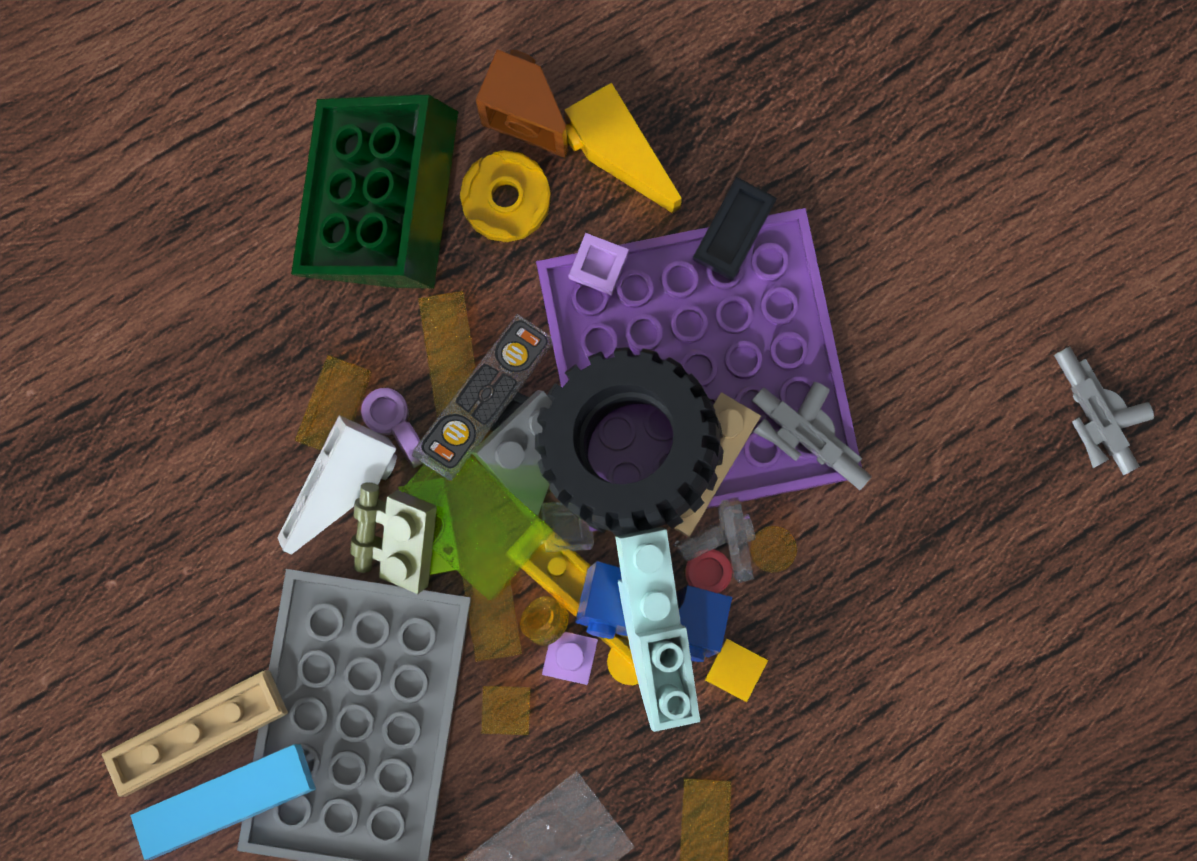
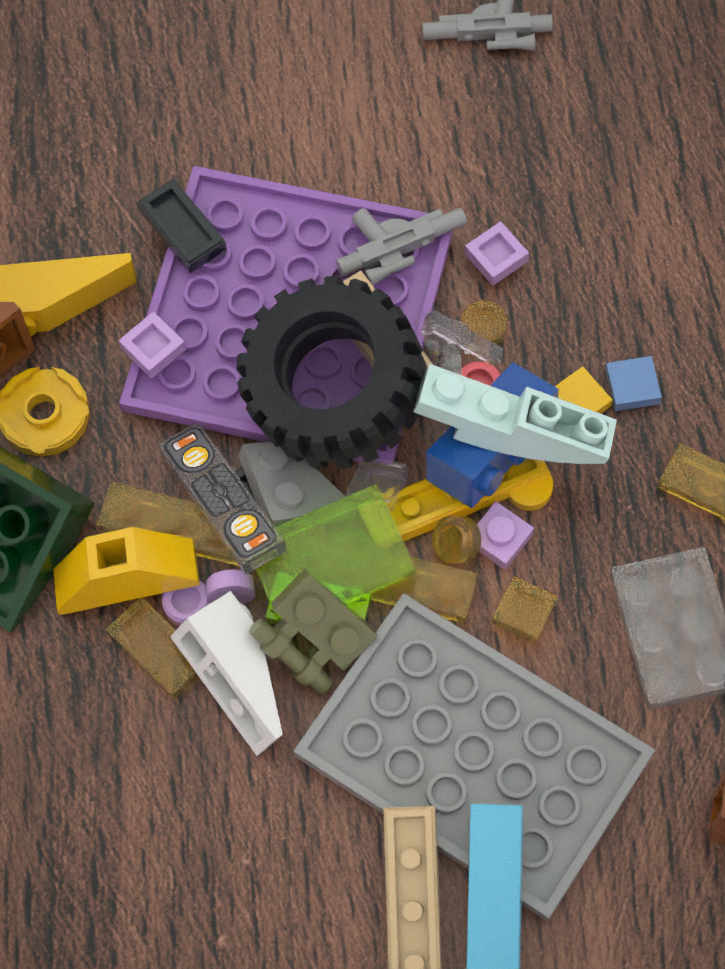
camera: 65 degrees left, 15 degrees down
(381, 347) = (124, 568): none -> yellow slope
(775, 713) = (633, 383): none -> medium blue tile
(848, 530) = (496, 253): none -> lavender plate

